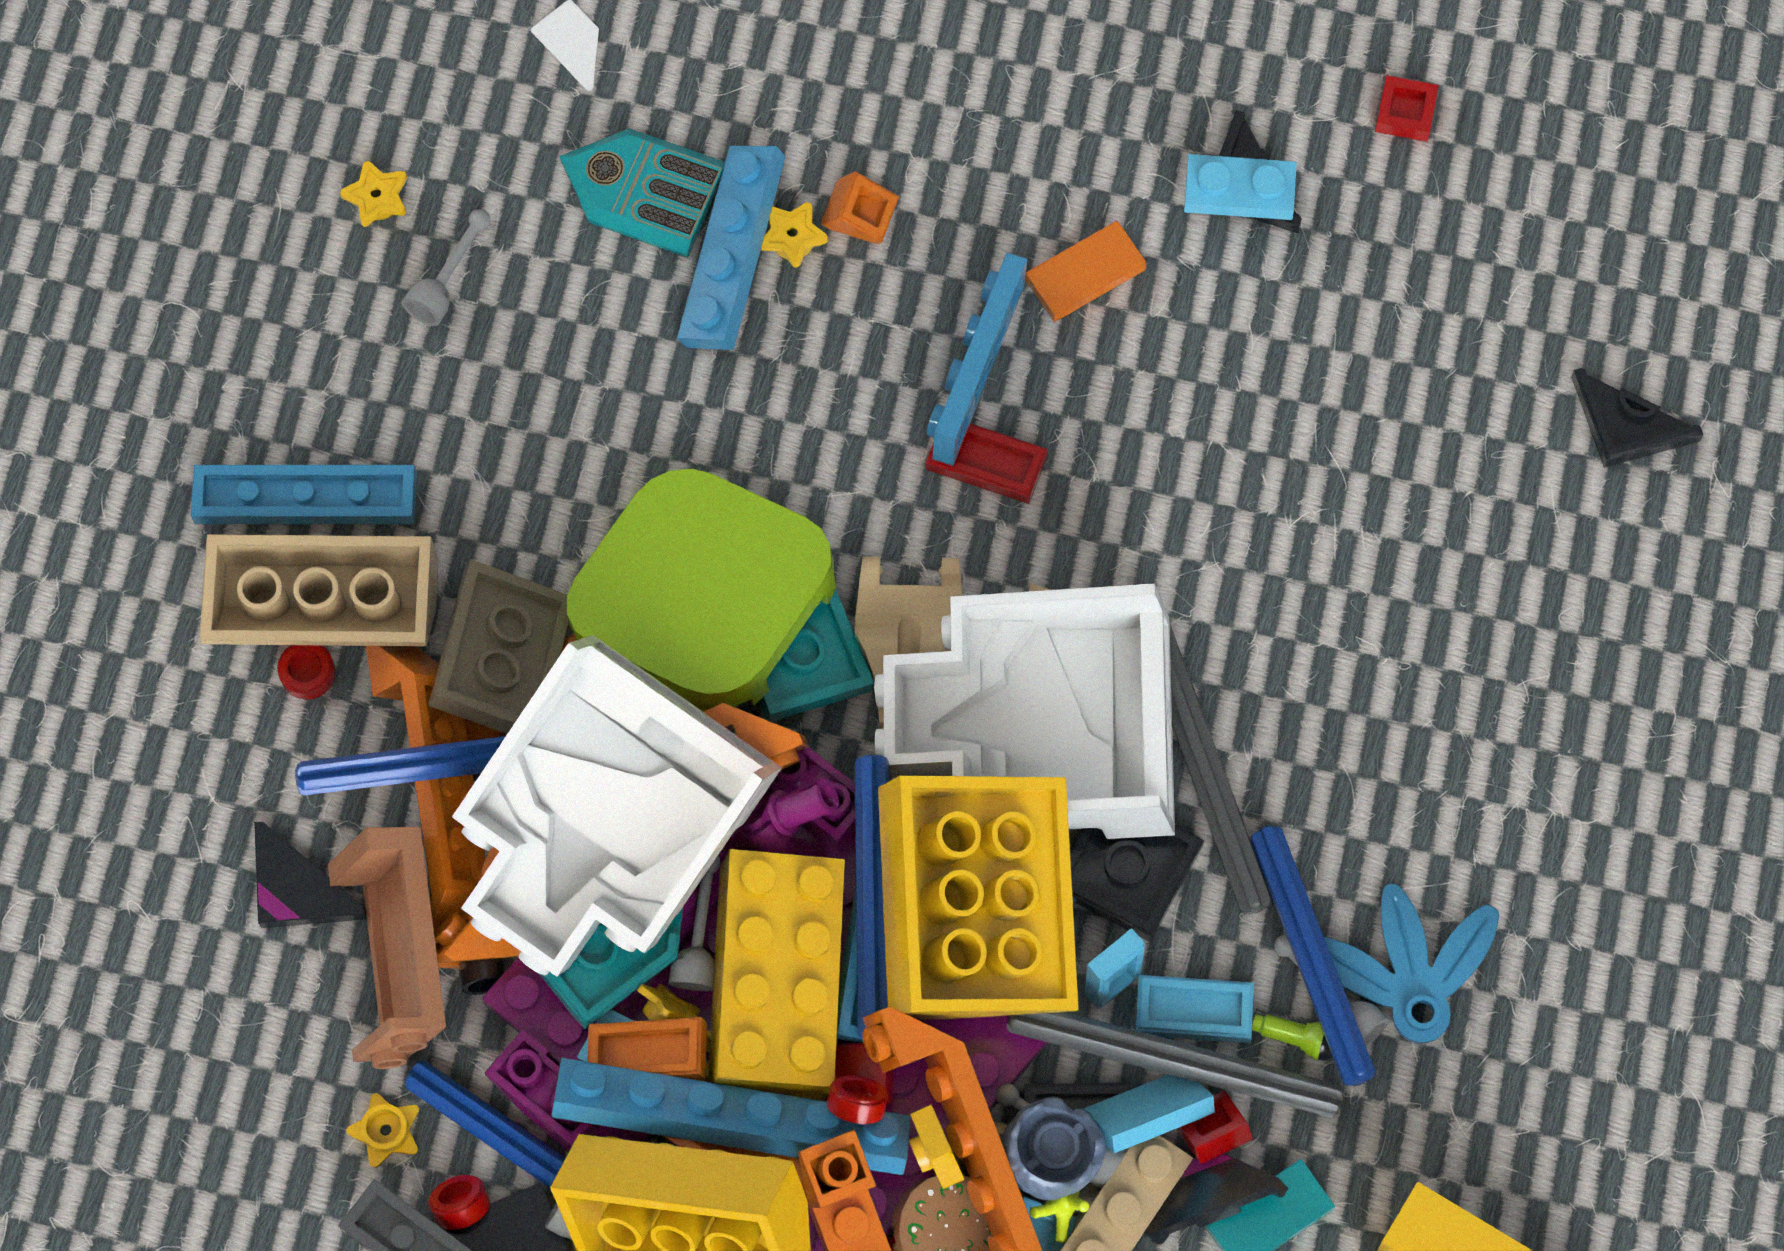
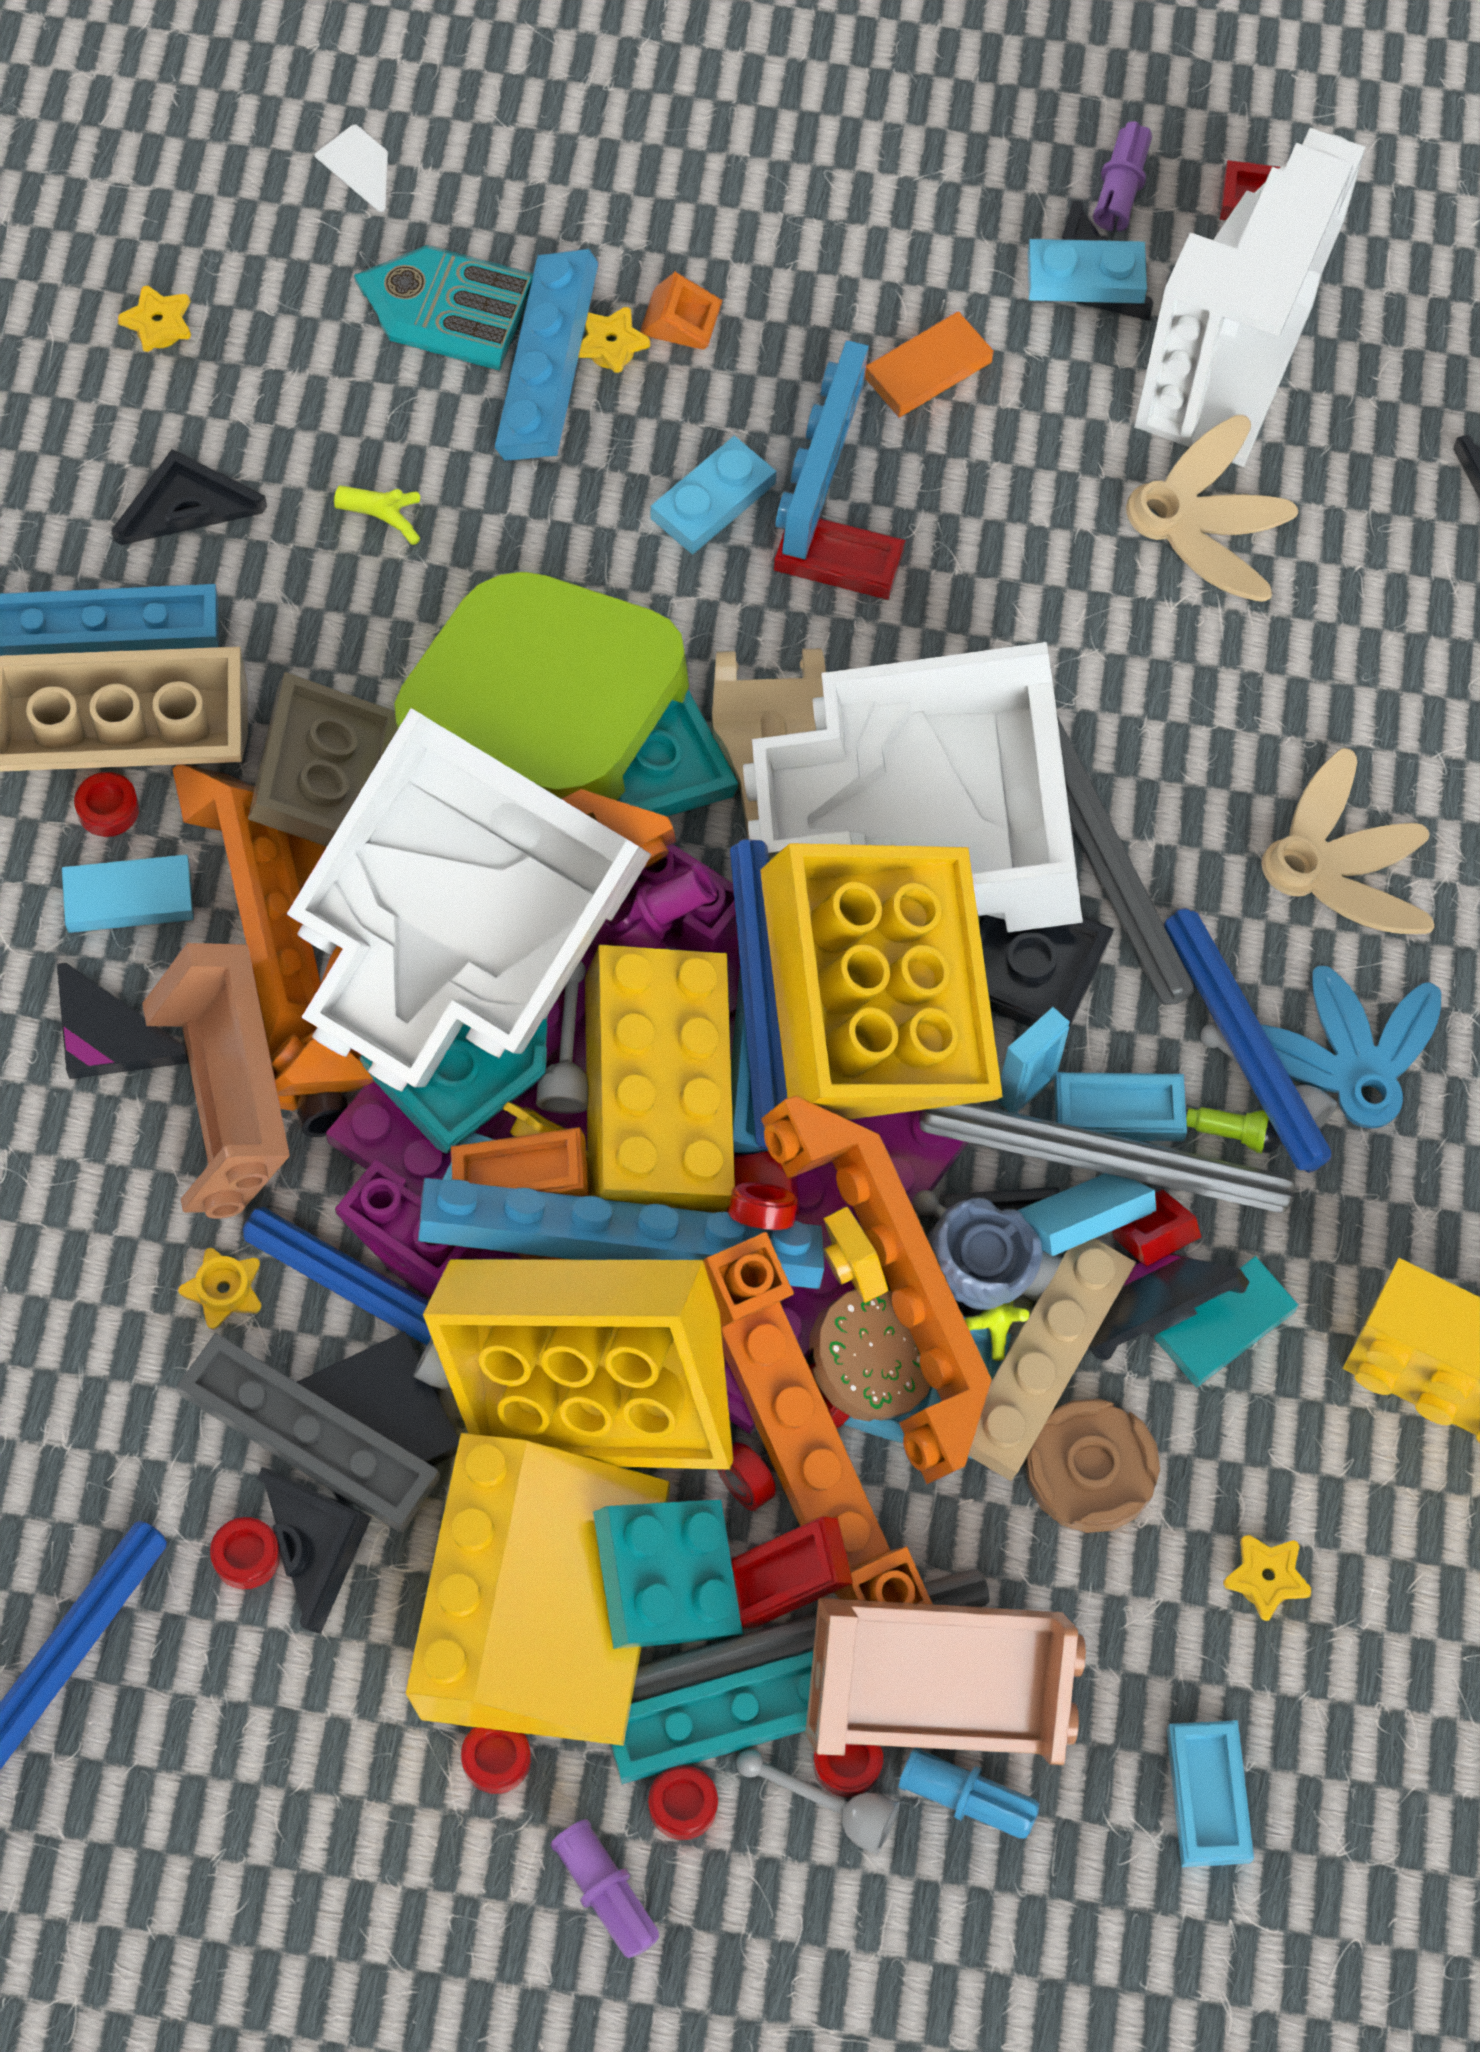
camera: 10 degrees left, 5 degrees down
(288, 747) = (127, 893): none -> medium azure tile
(390, 374) = (184, 498): none -> black tile
(395, 766) = (209, 880): blue axle -> none
(429, 298) = (219, 419): light grey hinge -> none
(459, 1202) = (313, 1356): red tile -> none
(570, 390) = (380, 505): none -> neon yellow bar
(875, 393) = (713, 494): none -> medium azure plate
(1285, 87) = (1123, 177): none -> medium lavender axle
(1313, 434) = (1186, 517): none -> tan plant
(1369, 257) = (1246, 296): none -> white panel
(1403, 784) = (1310, 864): none -> tan plant

